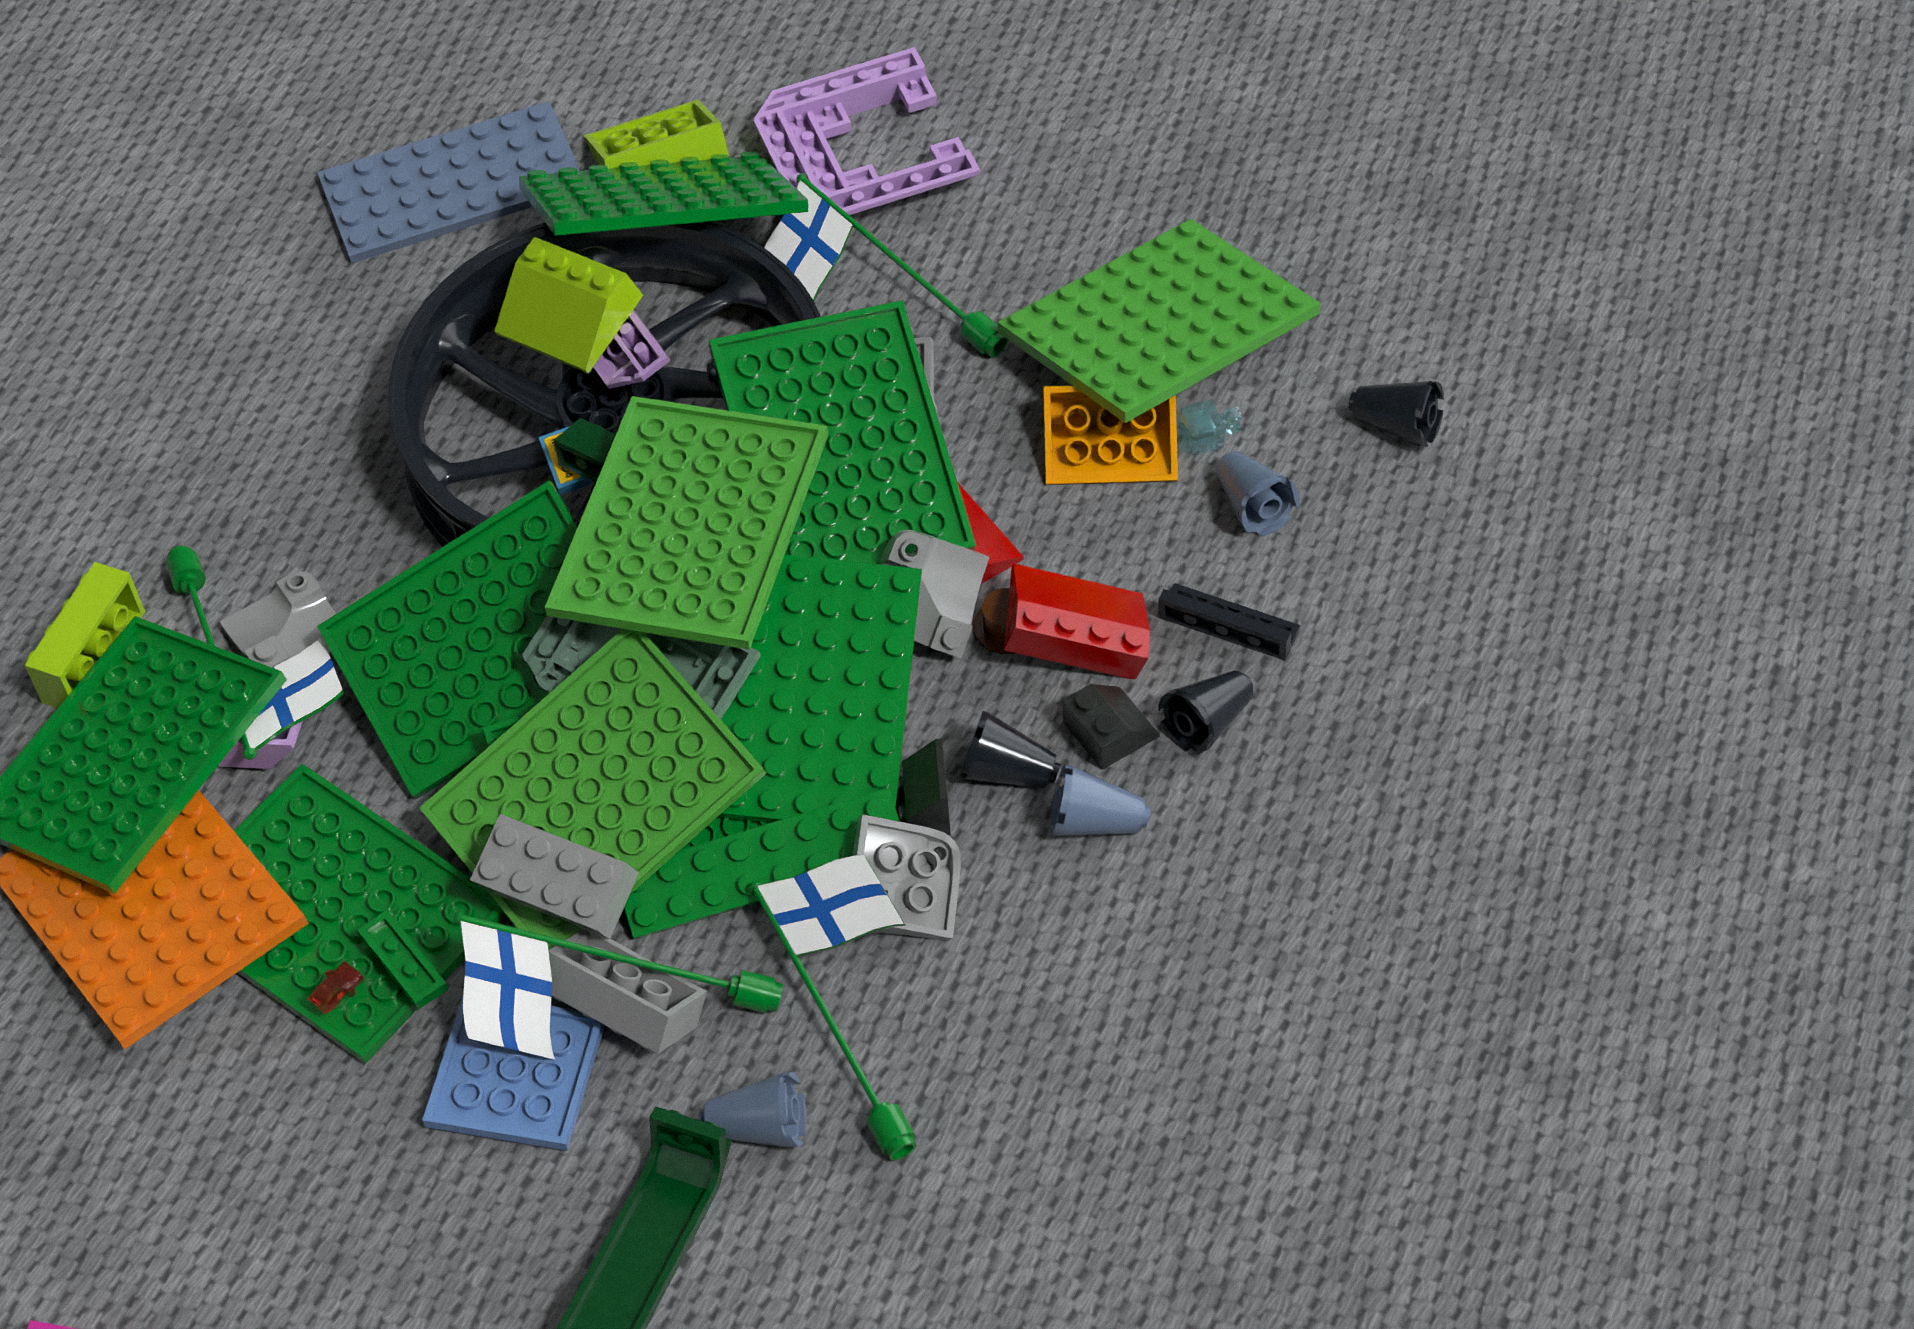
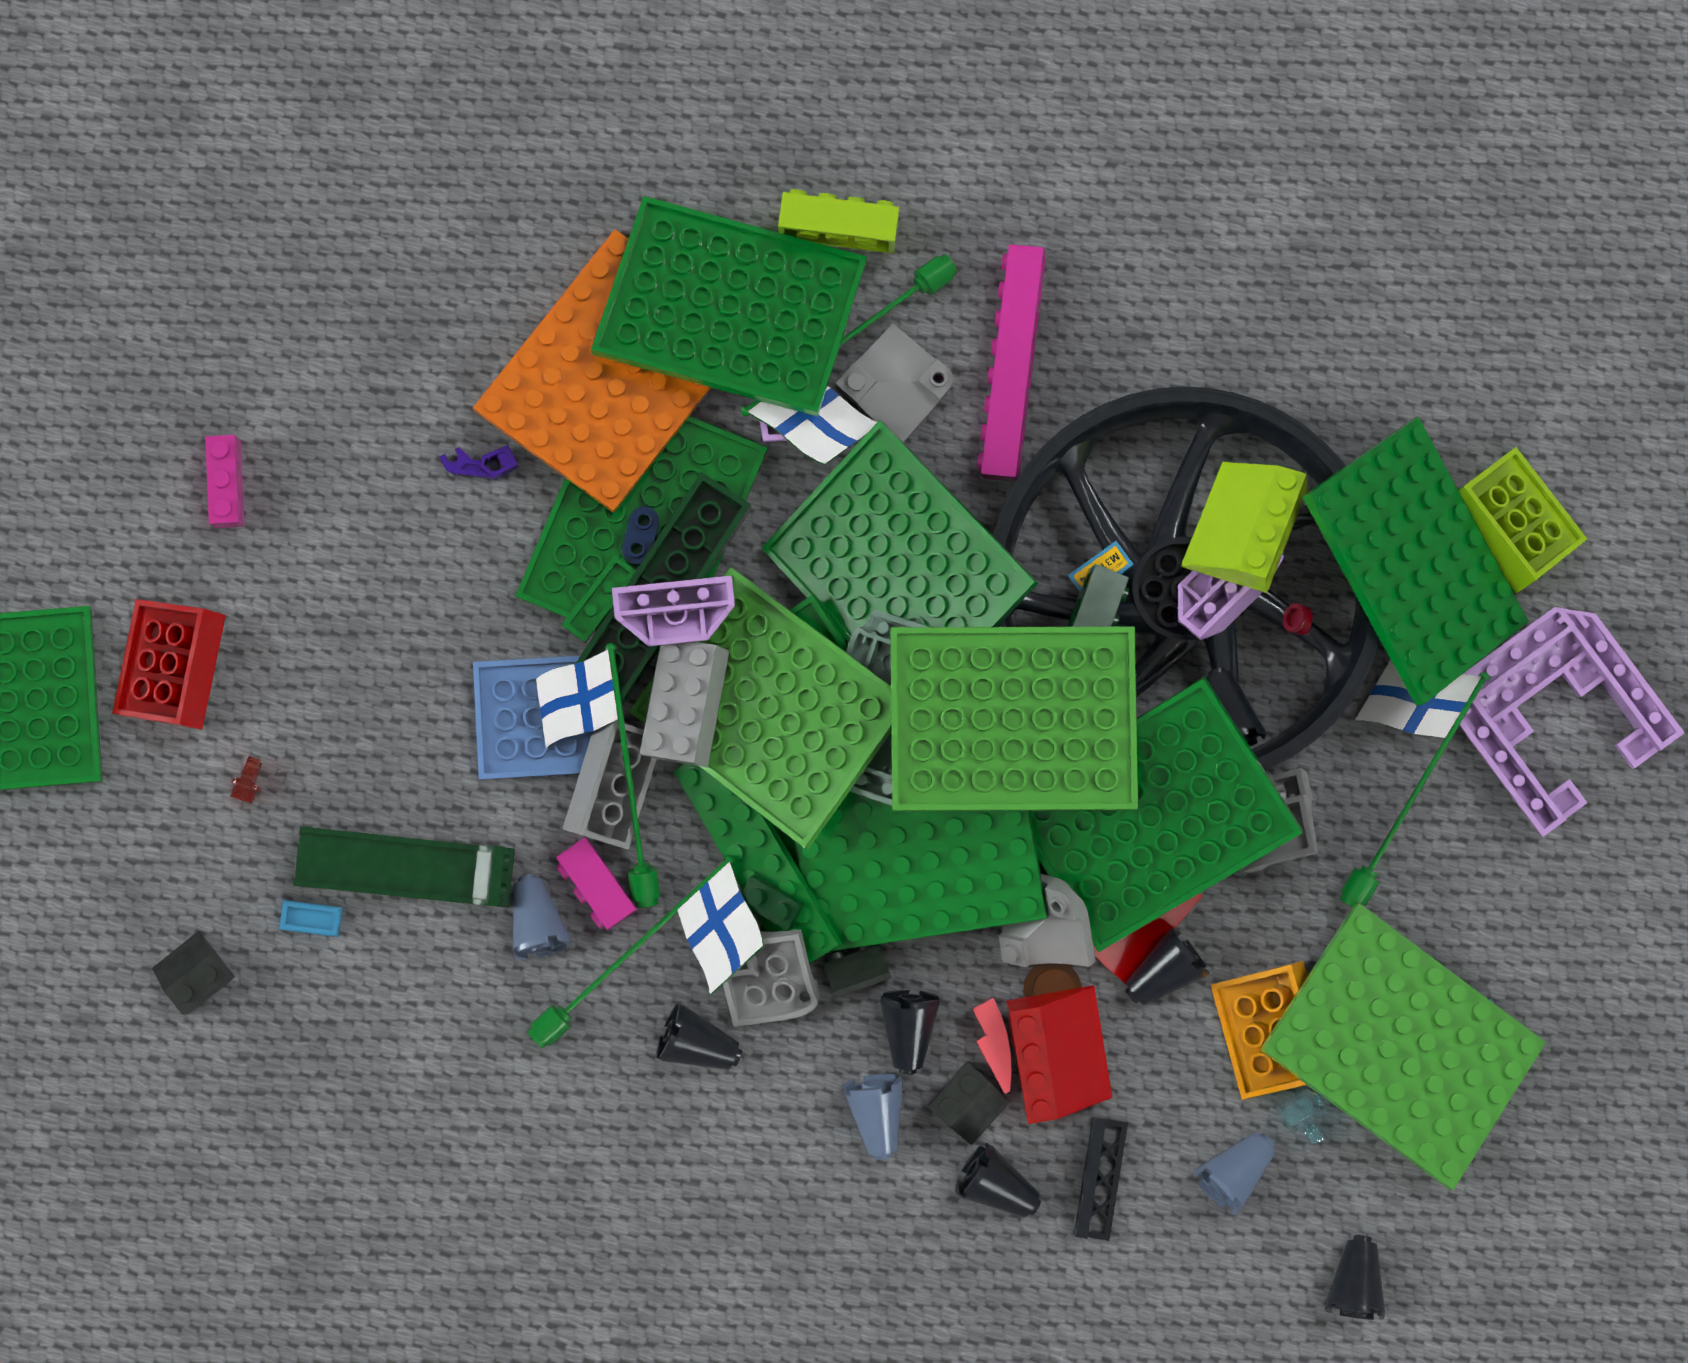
camera: 70 degrees right, 30 degrees up
(188, 1081) = (475, 468): none -> dark purple piece
(310, 517) = (1013, 363): none -> dark pink brick
(335, 986) = (569, 558): clear red piece -> none
(343, 905) = (640, 534): none -> dark blue plate
(397, 868) = (682, 552): none -> dark green brick
(442, 842) = (675, 609): none -> lavender wedge
(443, 181) = (1429, 343): sand blue plate -> none
(681, 287) = (1297, 619): none -> dark red tile
(737, 1043) = (595, 884): none -> dark pink brick
(819, 845) = (772, 902): none -> dark green plate
(954, 975) = (696, 1041): none -> black cone
(1014, 504) = (1166, 969): none -> black cone
(1045, 681) = (995, 1042): none -> coral slope

